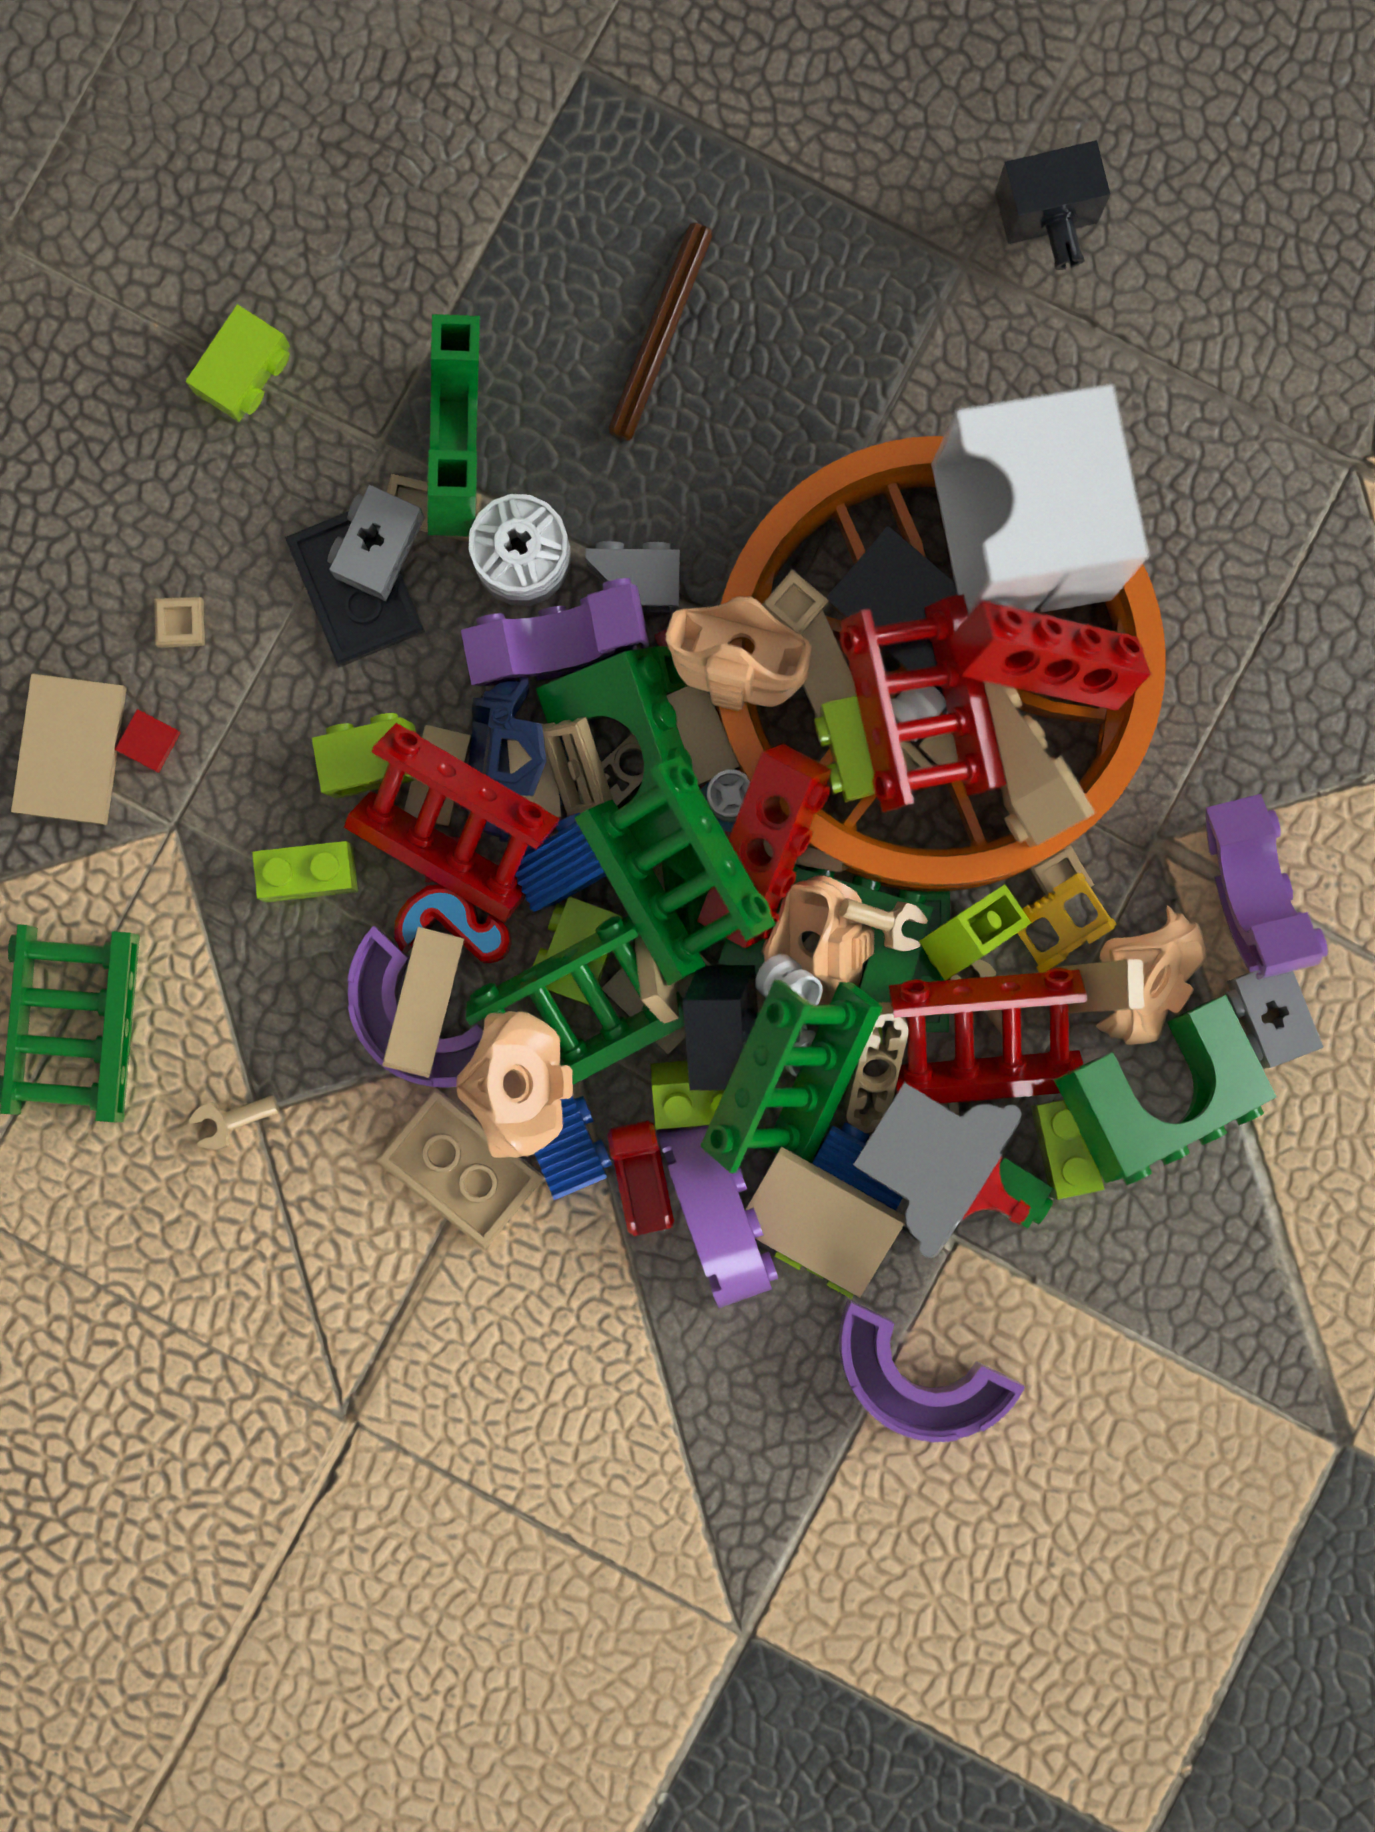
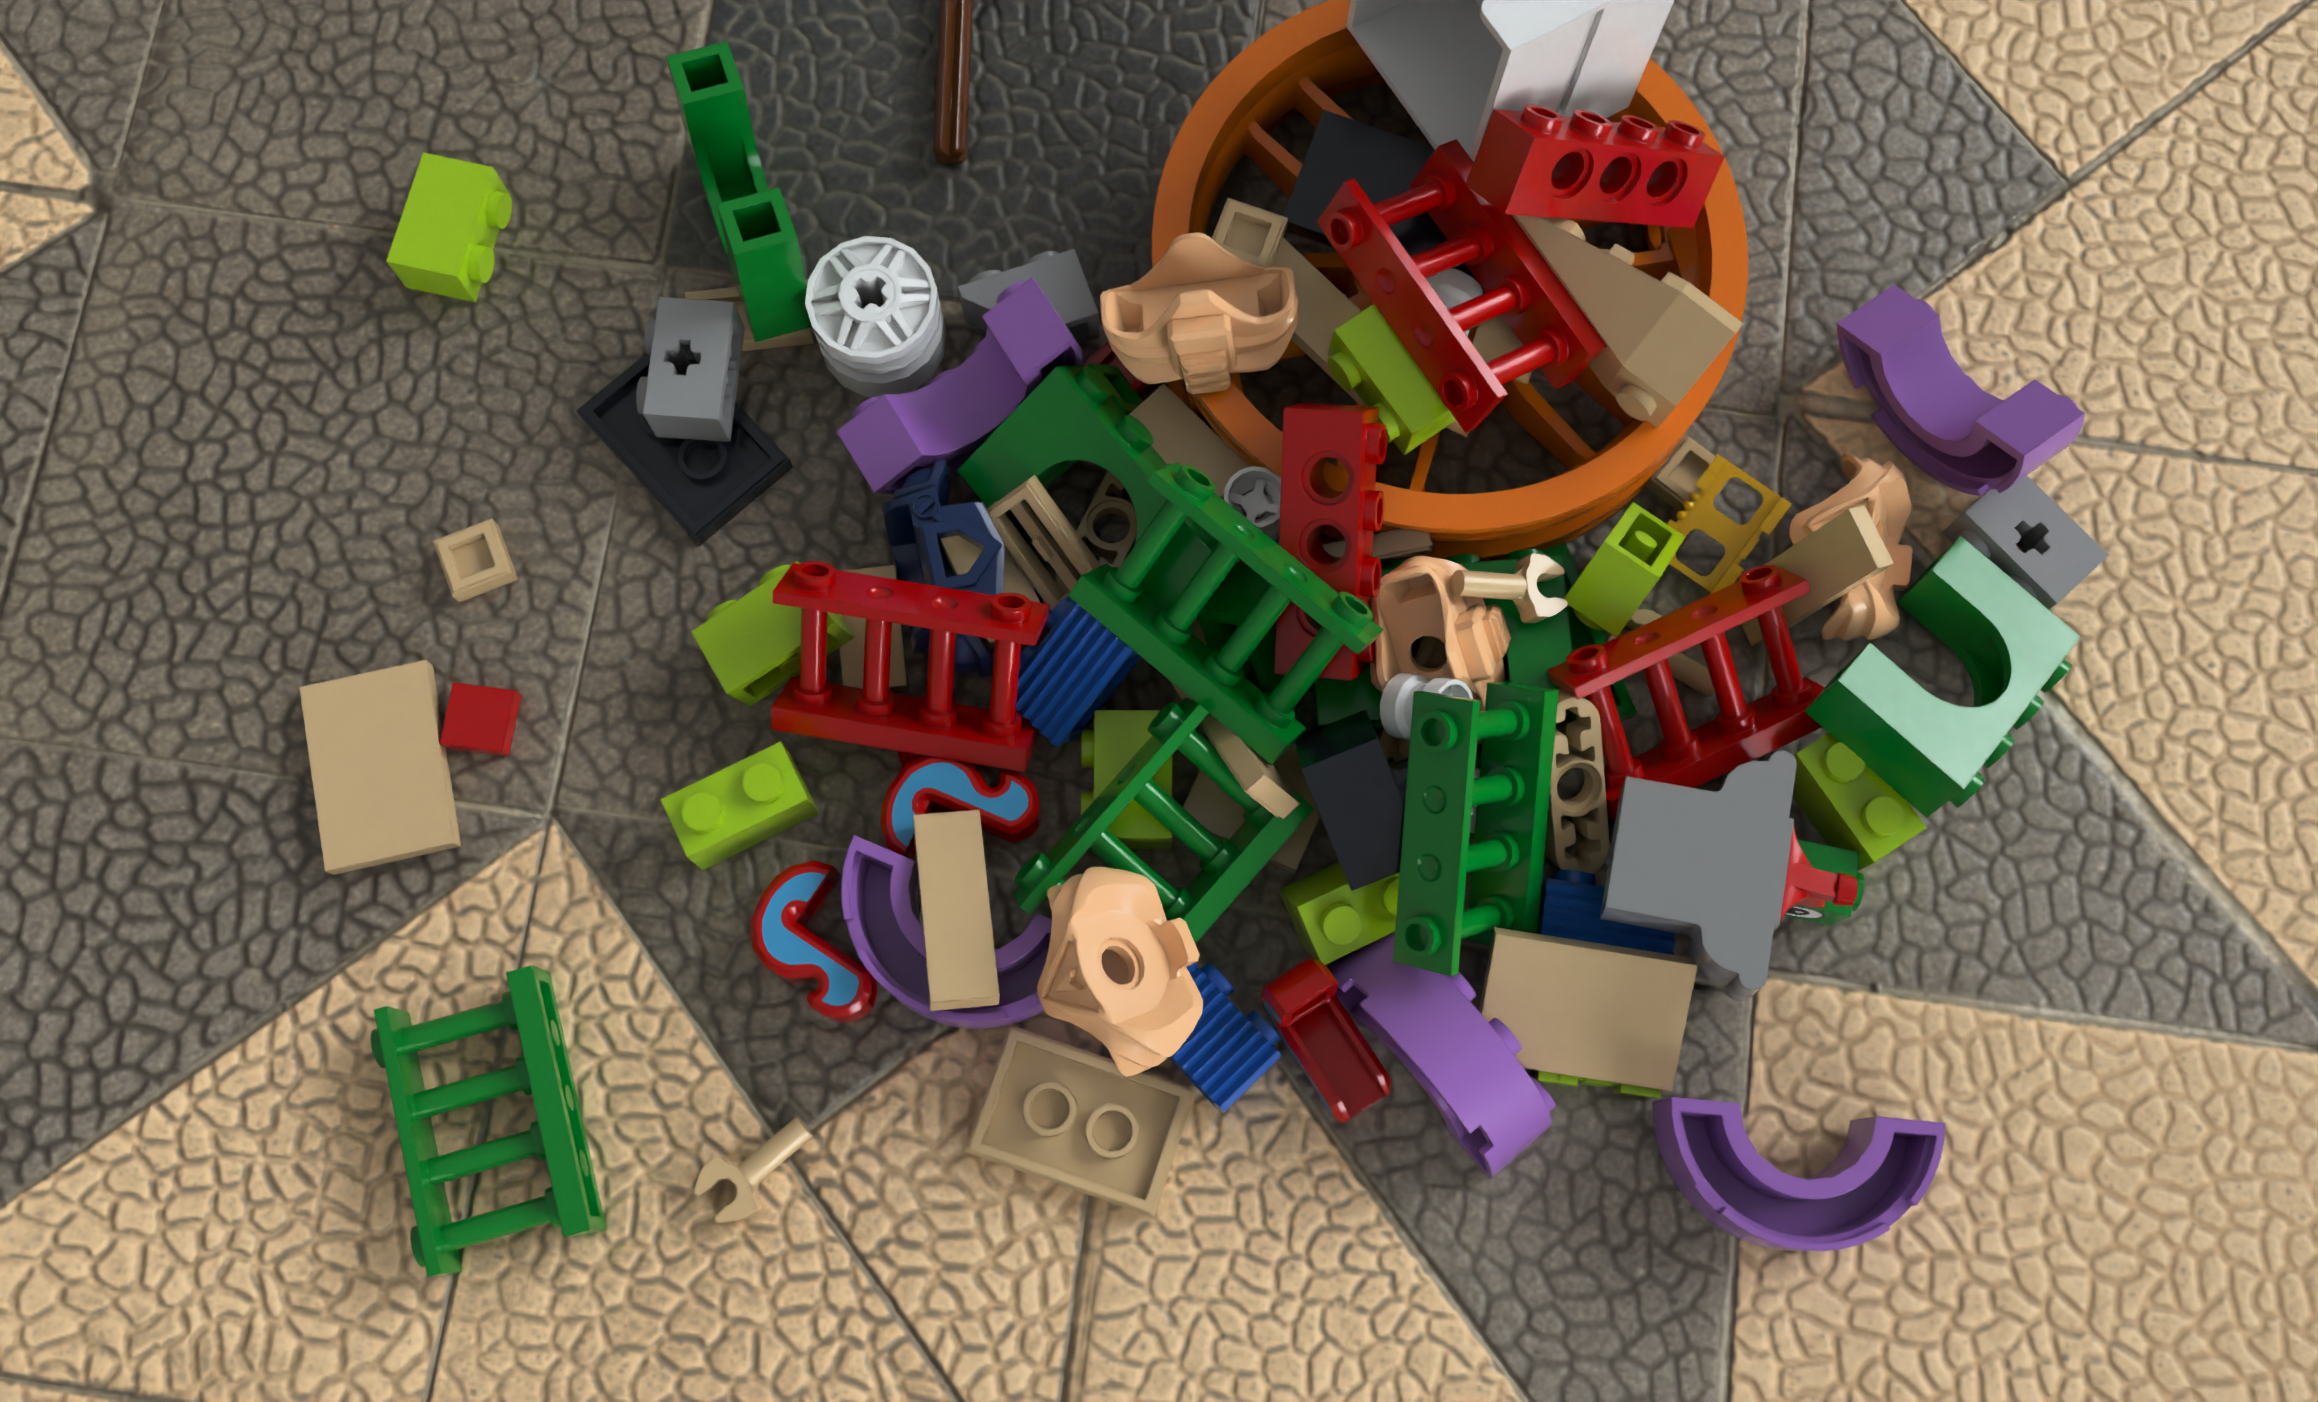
camera: 25 degrees left, 10 degrees down
(312, 989) = (796, 954): none -> red animal

